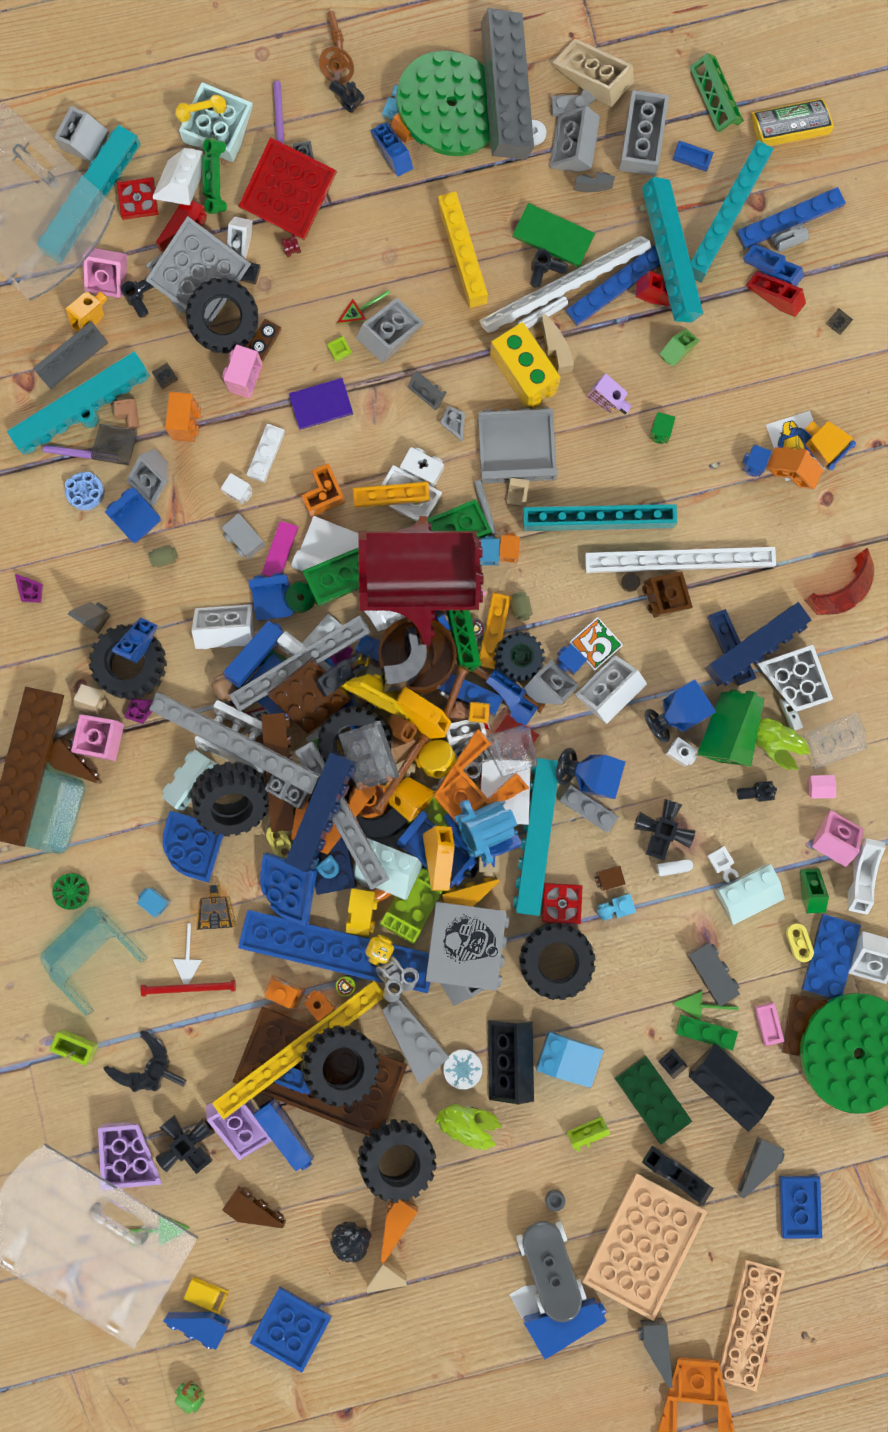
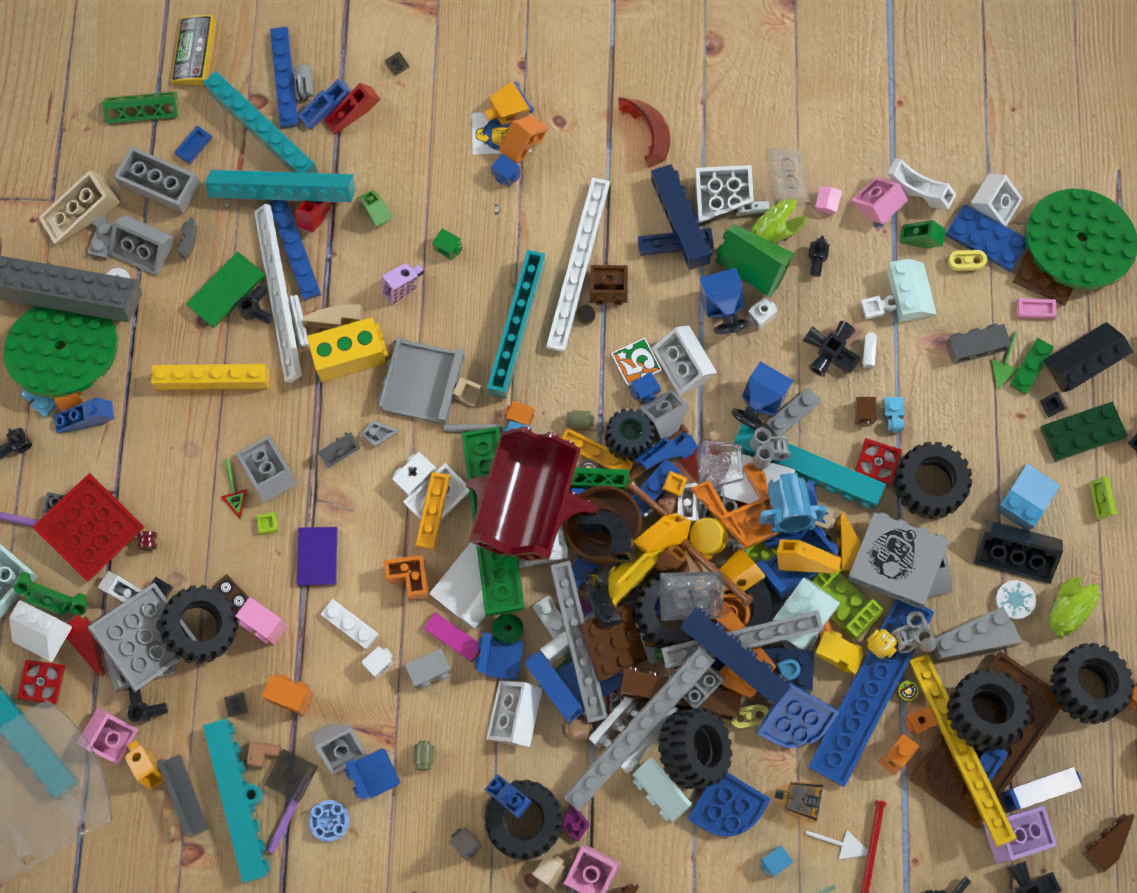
camera: 70 degrees left, 10 degrees down
(540, 796) = (771, 448): none -> light grey piece

